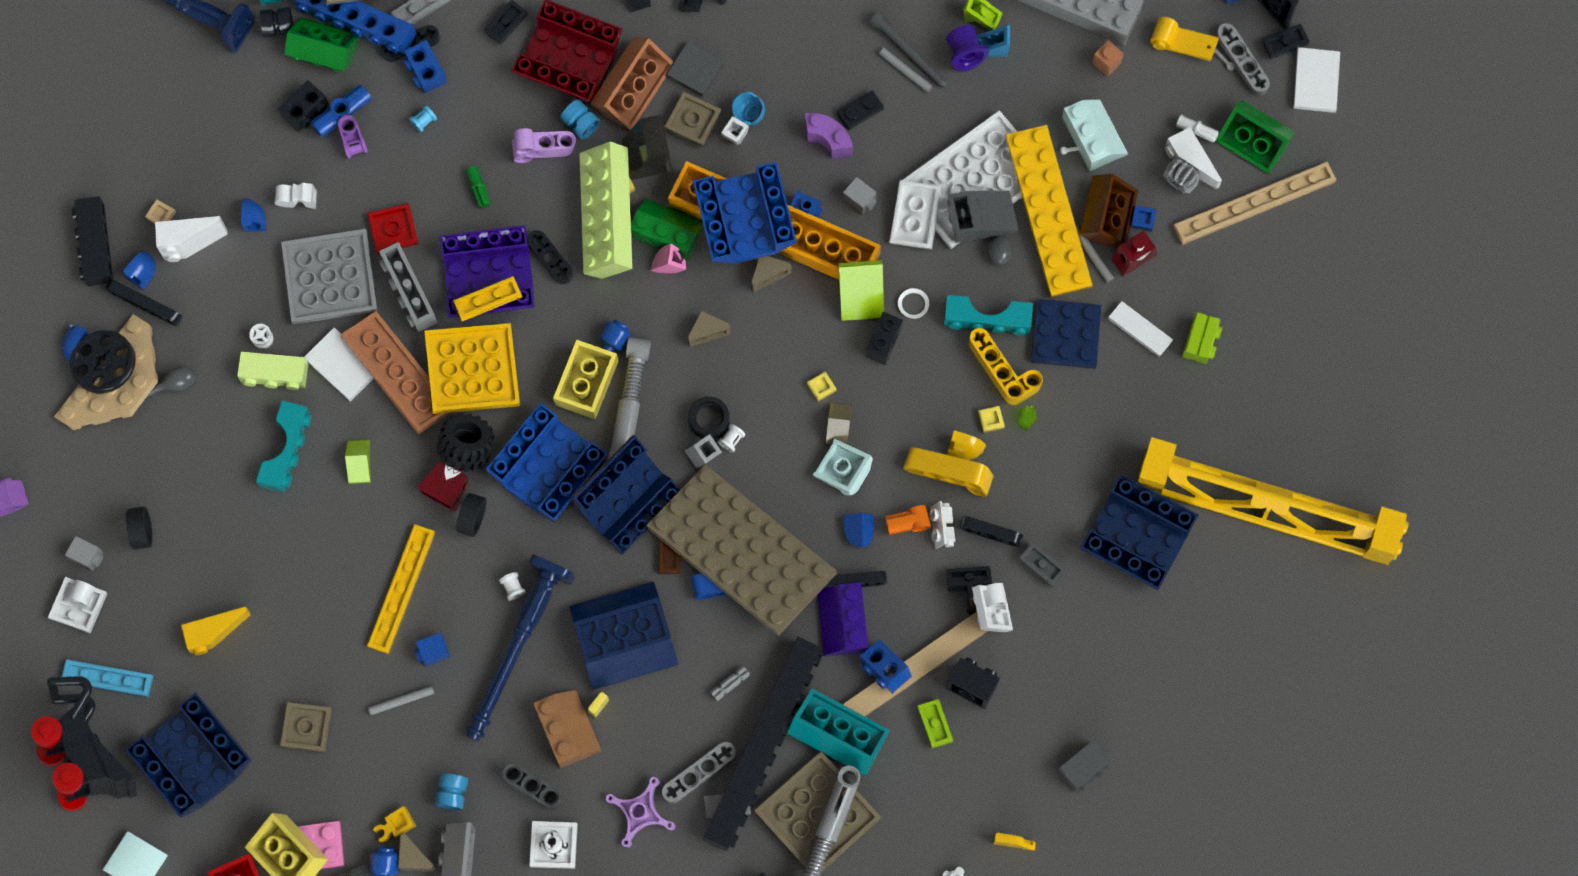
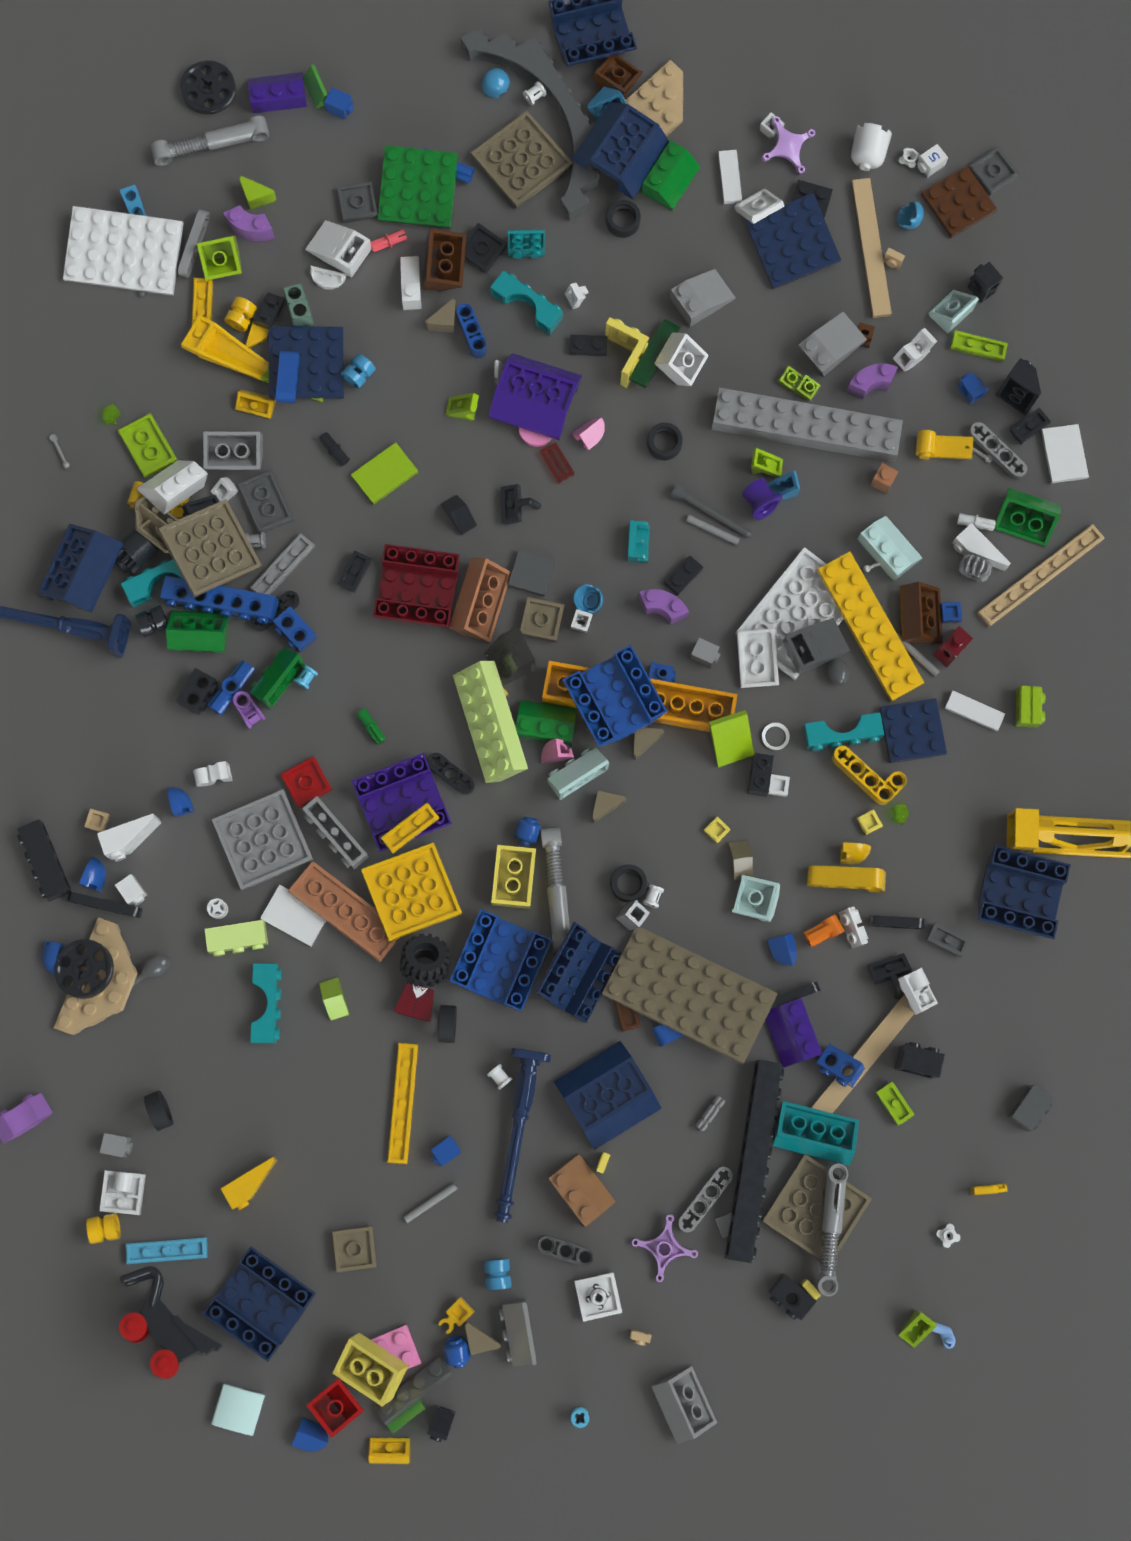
camera: 20 degrees left, 5 degrees up
(43, 635) = (103, 1228): none -> yellow wheel
(175, 294) = (131, 890): none -> white brick
(392, 112) = (277, 677): none -> green slope
(527, 146) = (404, 677): lavender piece -> none
(582, 121) = (445, 644): dark azure wheel -> none
(686, 288) = (577, 772): none -> light aqua slope
(820, 62) = (638, 541): none -> teal hinge
(900, 354) = (779, 785): none -> white tile

